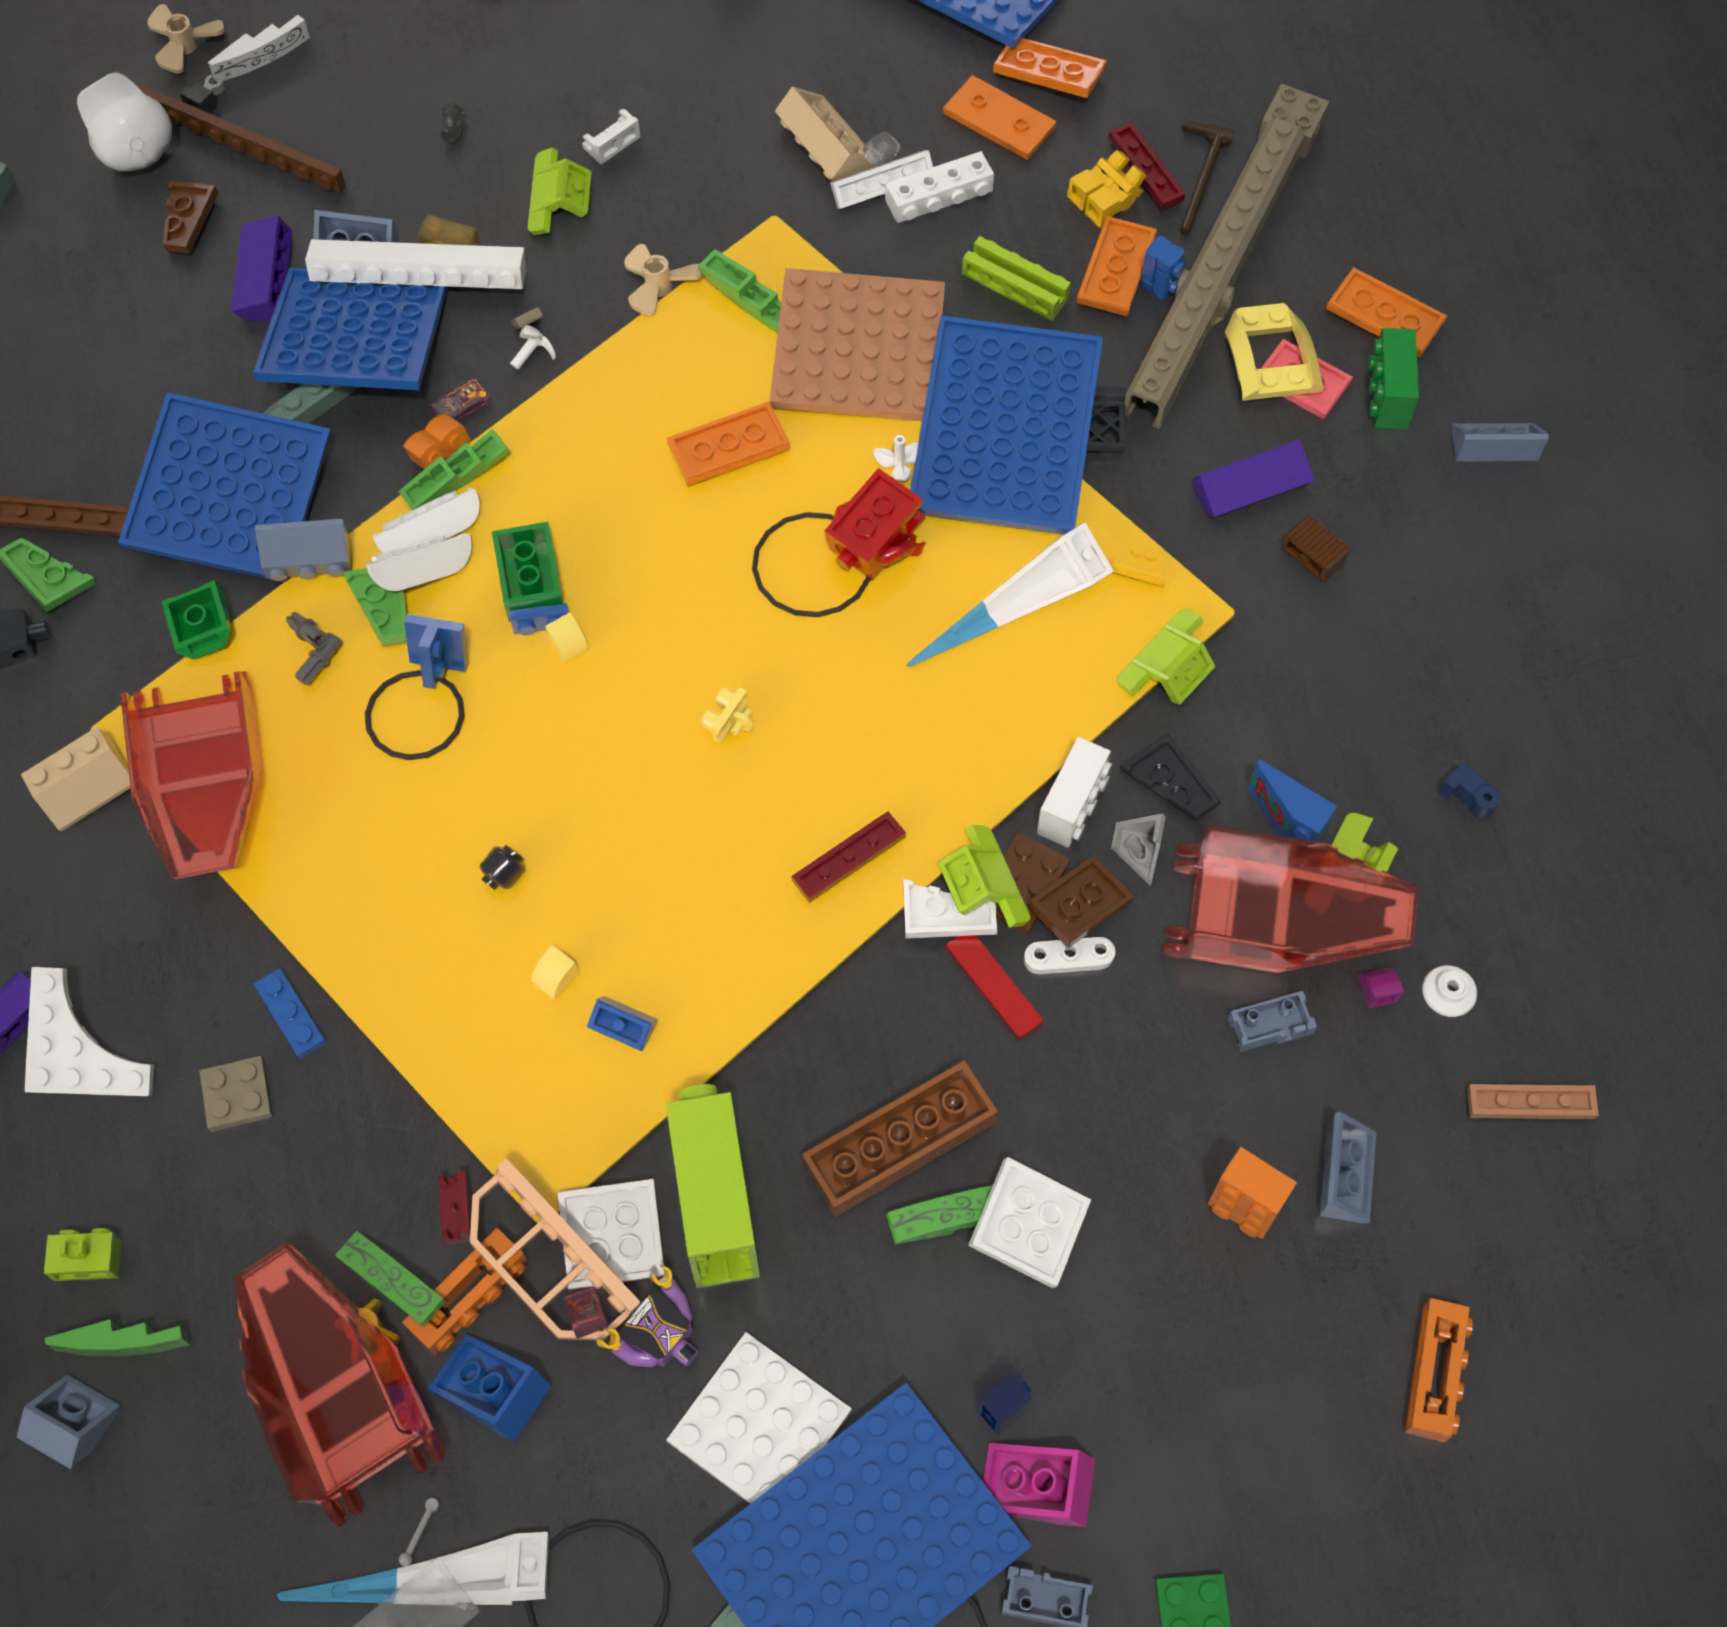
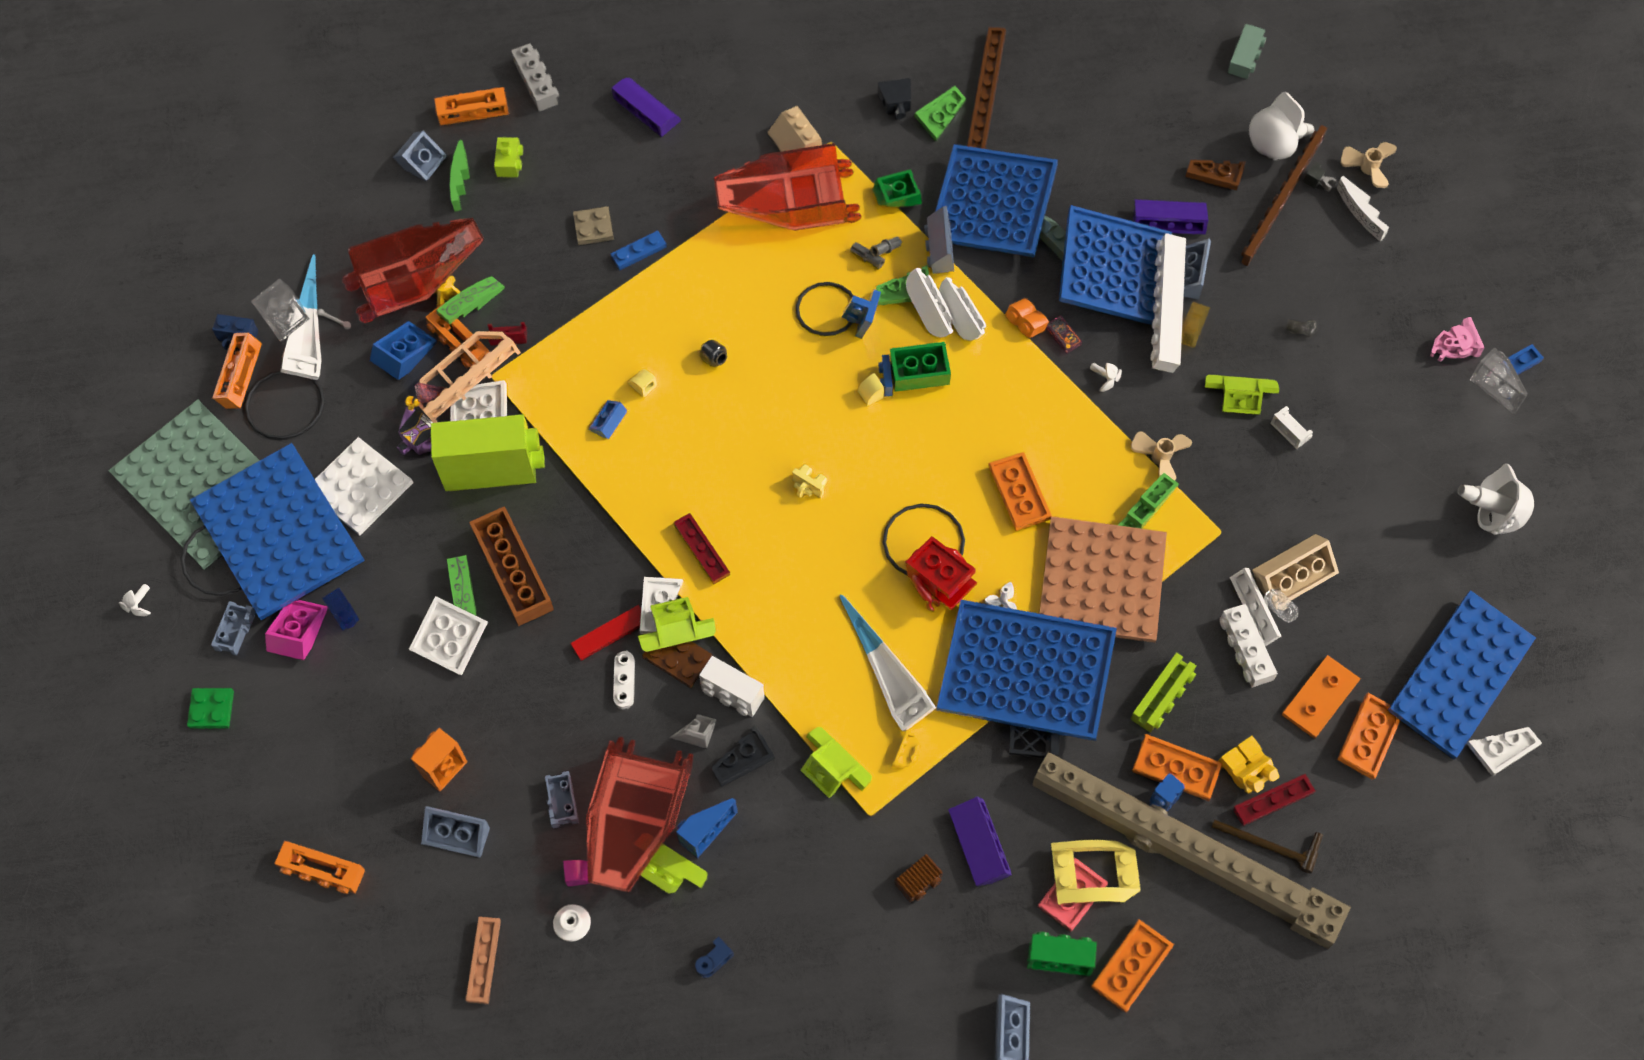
camera: 95 degrees right, 0 degrees up
(63, 1053) = (623, 140): white plate -> none
(456, 471) = (1003, 328): bright green slope -> none
(526, 318) = (1129, 371): dark tan tile -> none
(1080, 901) = (656, 686): reddish brown plate -> none

